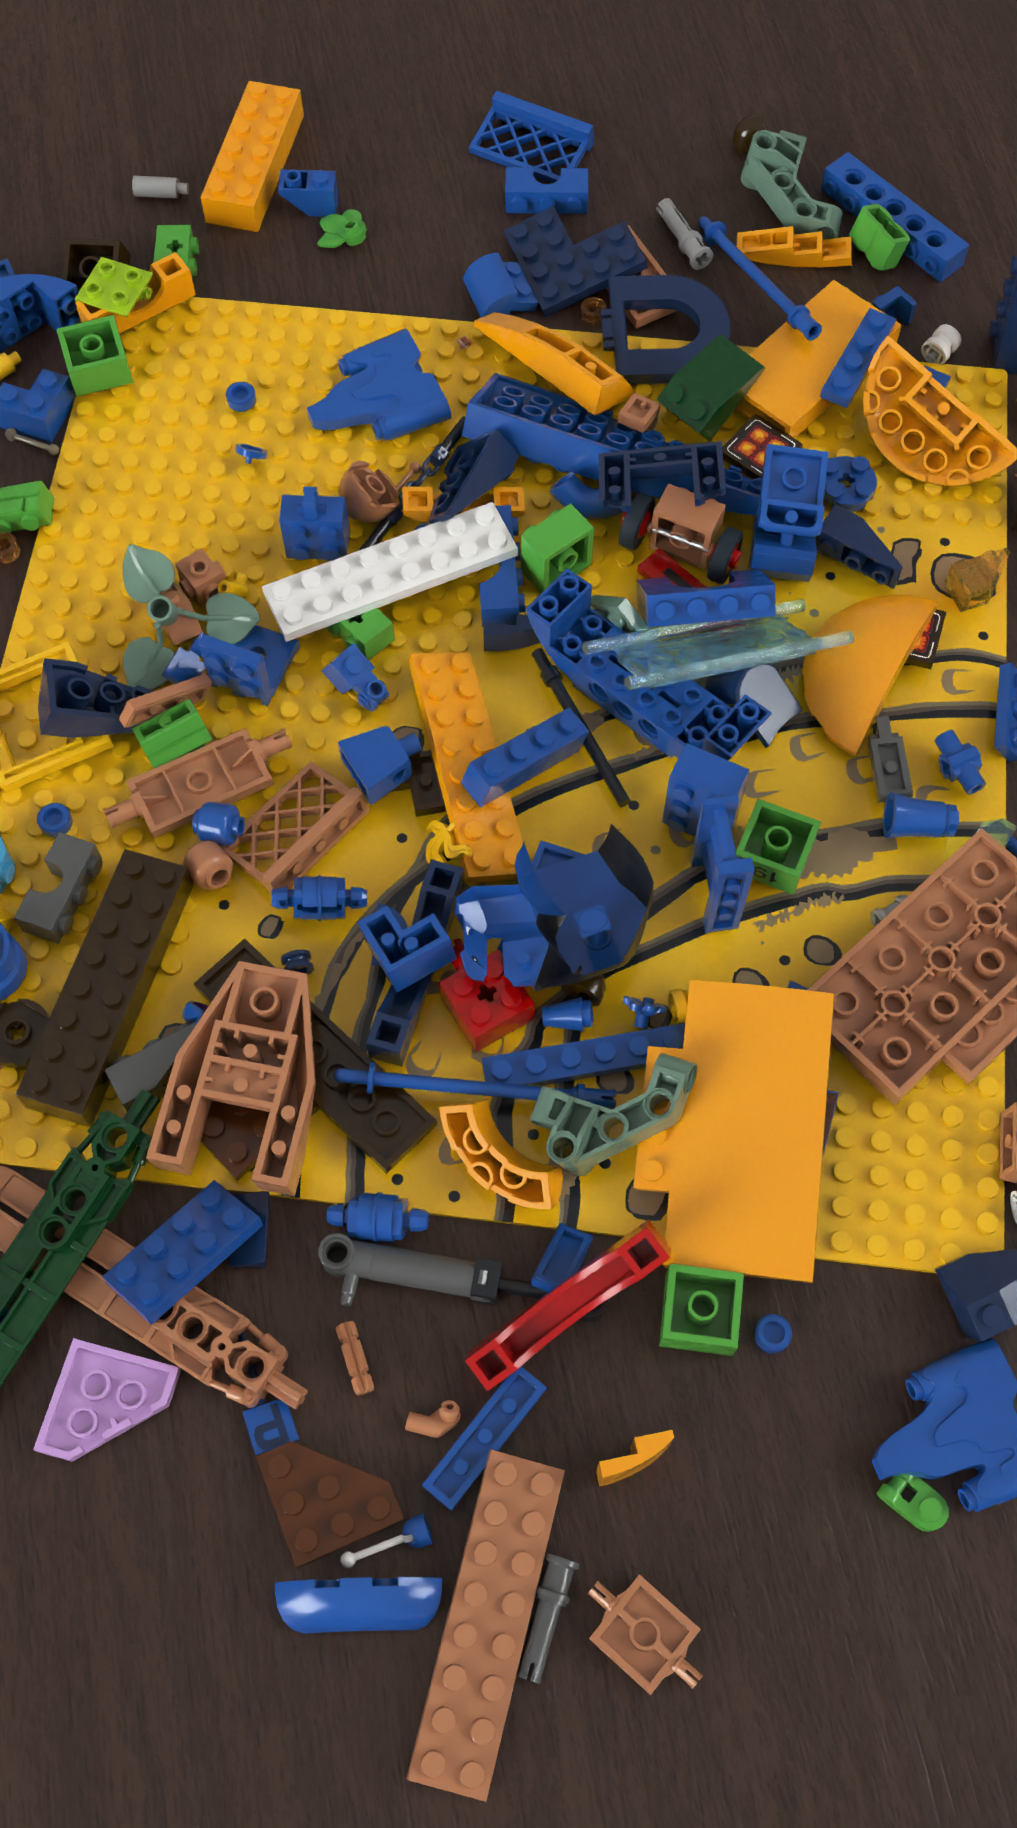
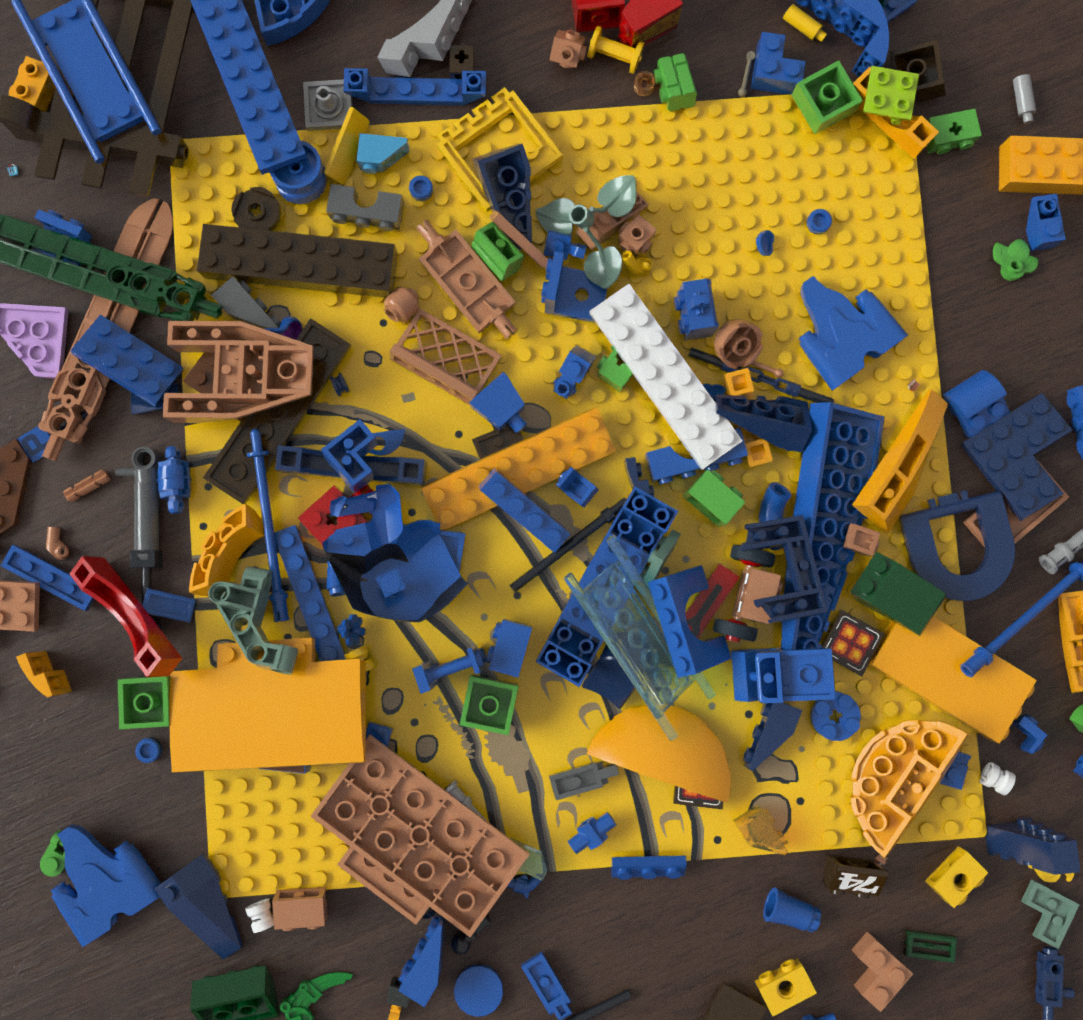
camera: 75 degrees right, 20 degrees up
(218, 823) = (433, 303): blue head -> none
(319, 898) = (389, 387): blue piece -> none
(444, 841) = (450, 465): yellow piece -> none
(508, 701) = (576, 487): none -> blue bracket
(589, 304) = (977, 478): clear orange bush -> none
(856, 358) = (953, 711): blue plate -> none
(918, 817) = (536, 806): blue plant -> none

